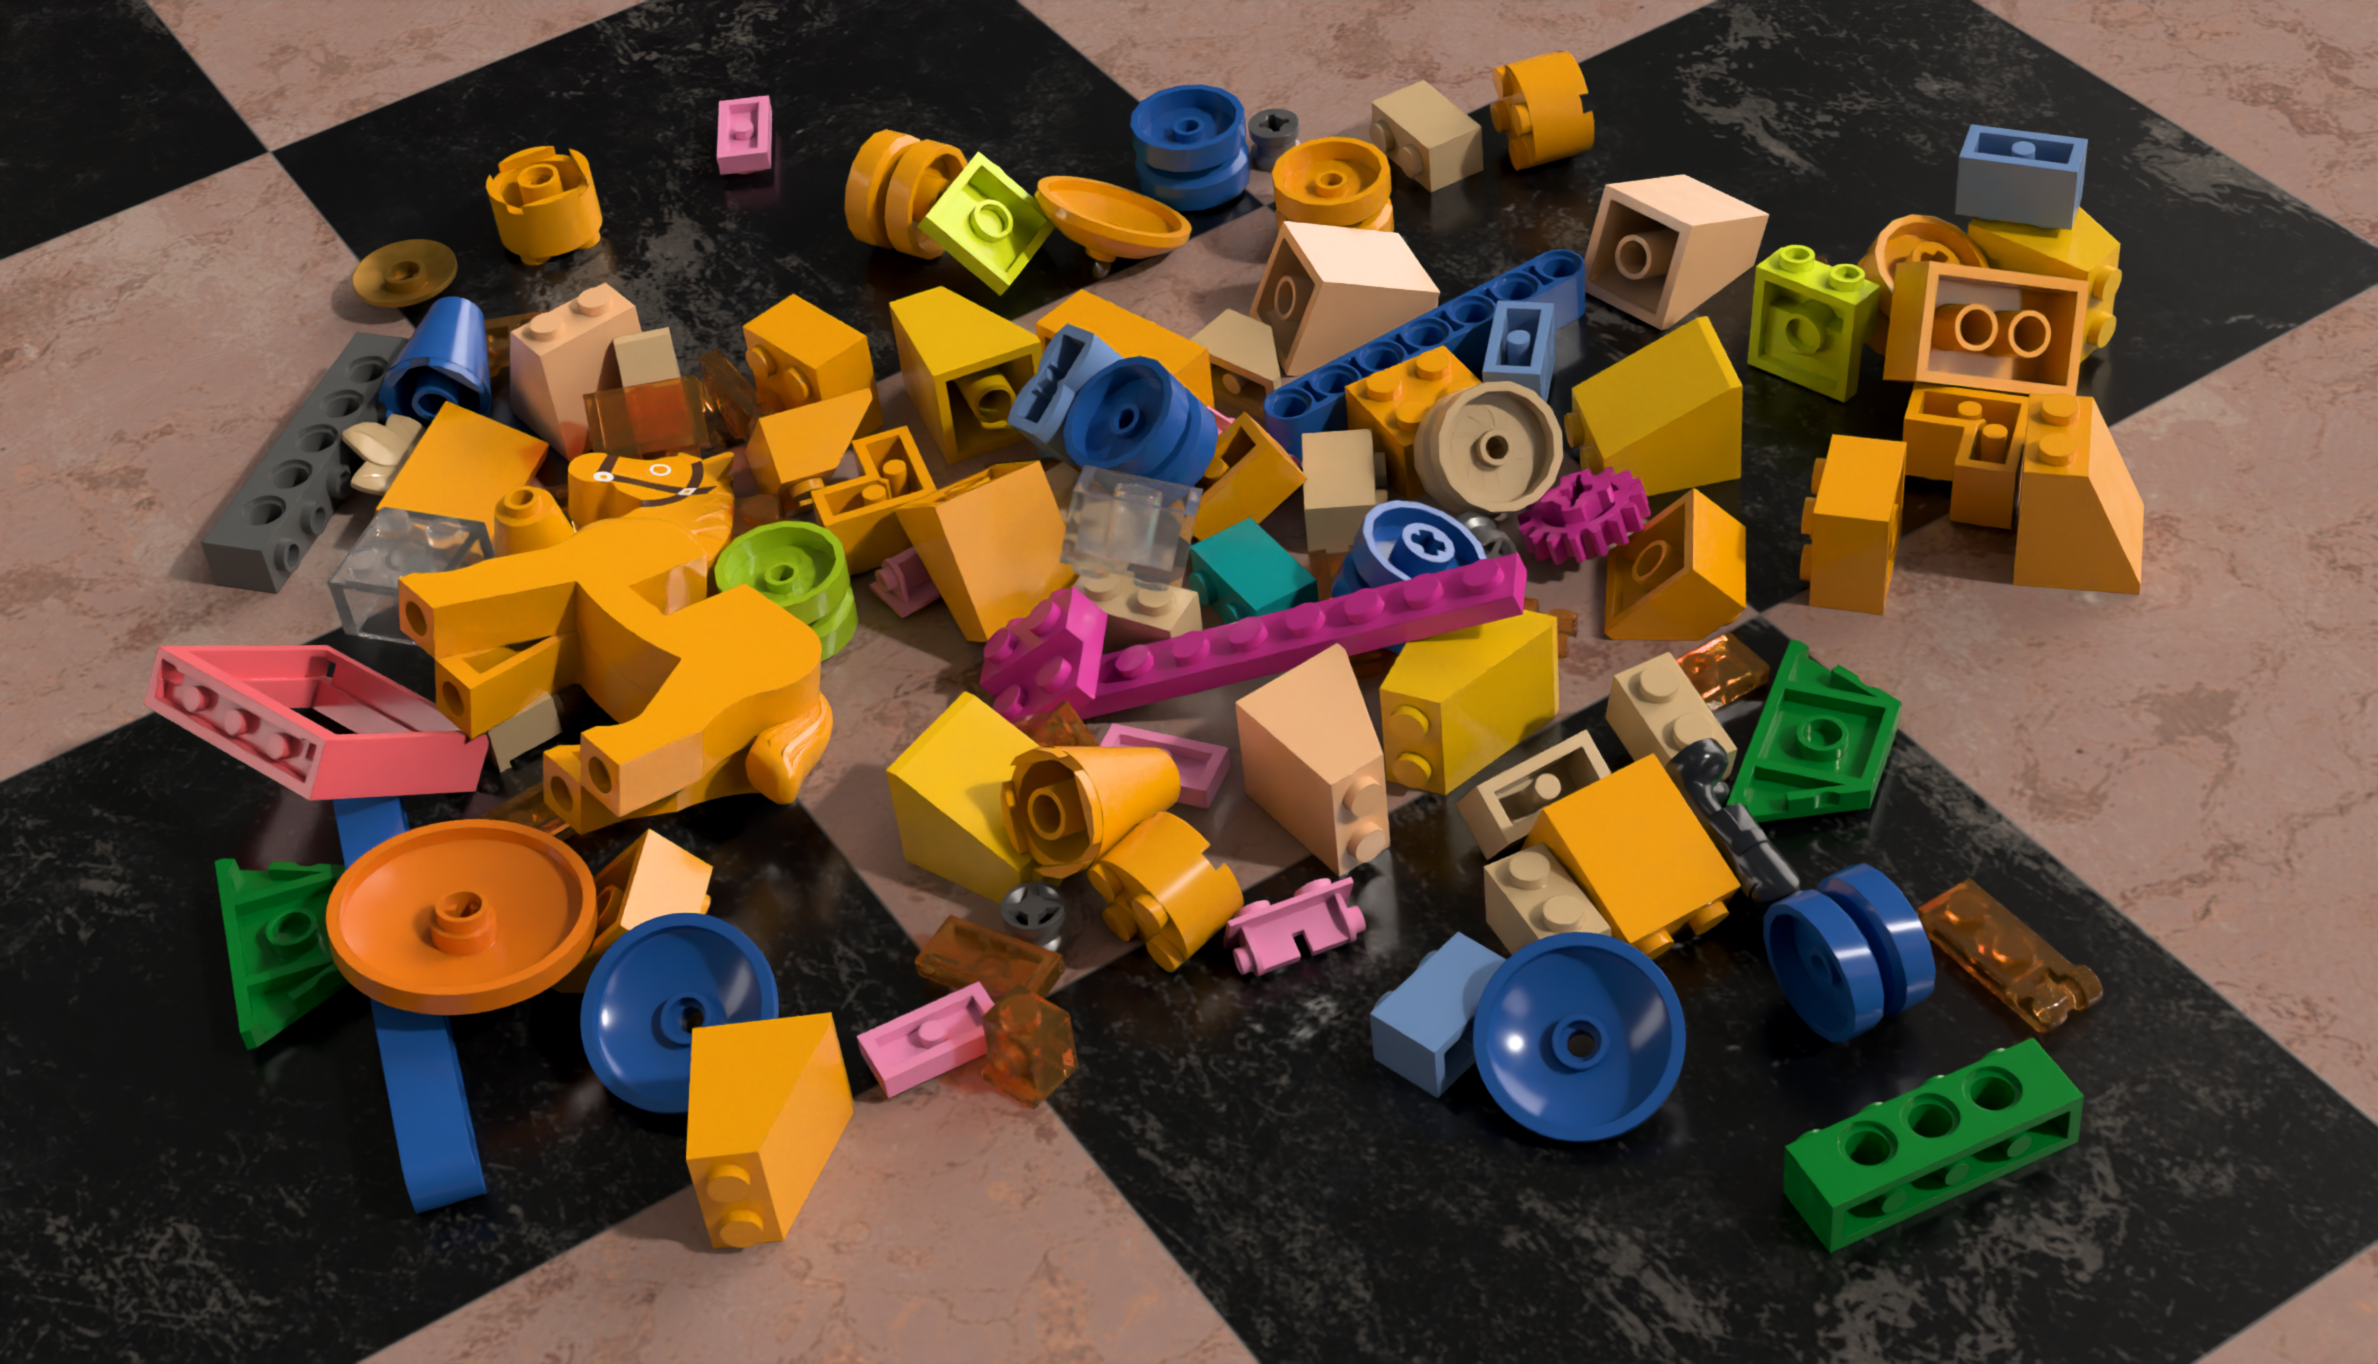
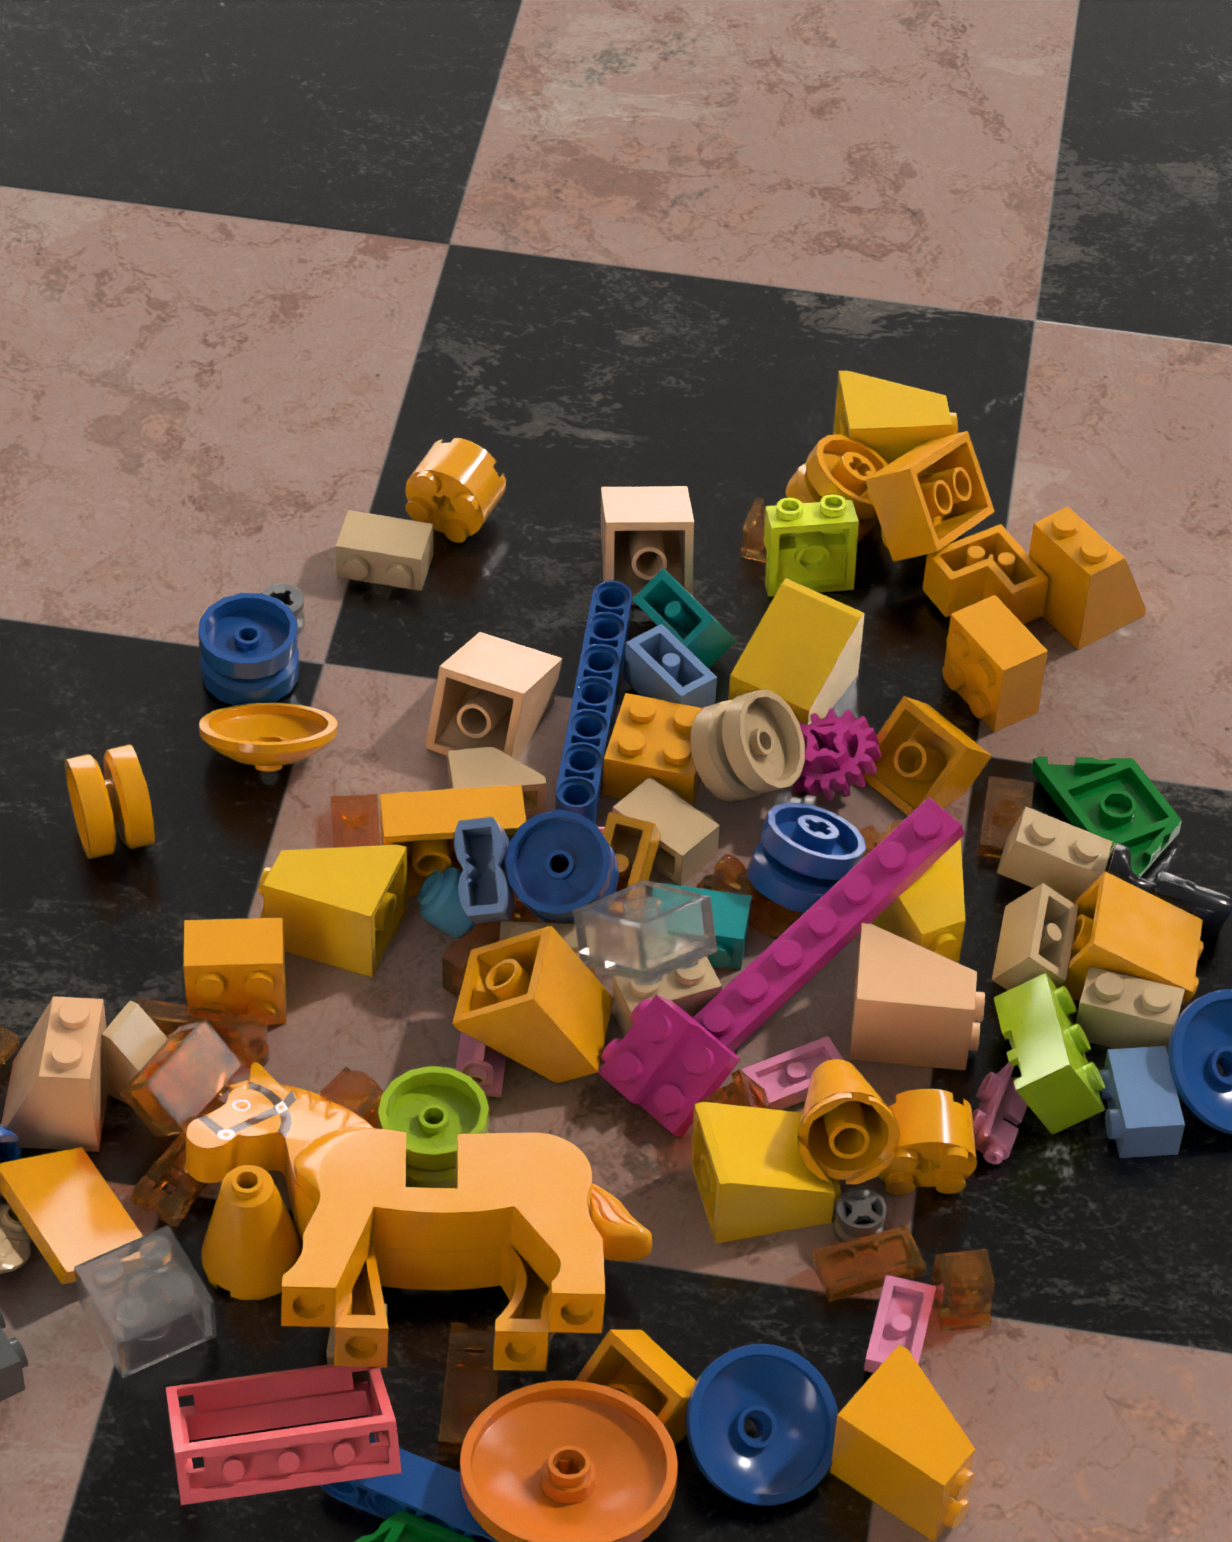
camera: 55 degrees left, 5 degrees up
(803, 448) = (323, 1025): light orange slope -> none
(863, 508) = (406, 1021): light orange brick -> none
(988, 223) = (197, 787): neon yellow plate -> none
(1334, 185) = (400, 633): light orange wheel -> none
(1391, 899) = (1049, 1053): none -> lime wedge
(1602, 318) = (684, 617): none -> teal brick
(2021, 177) = (872, 381): medium blue brick -> none

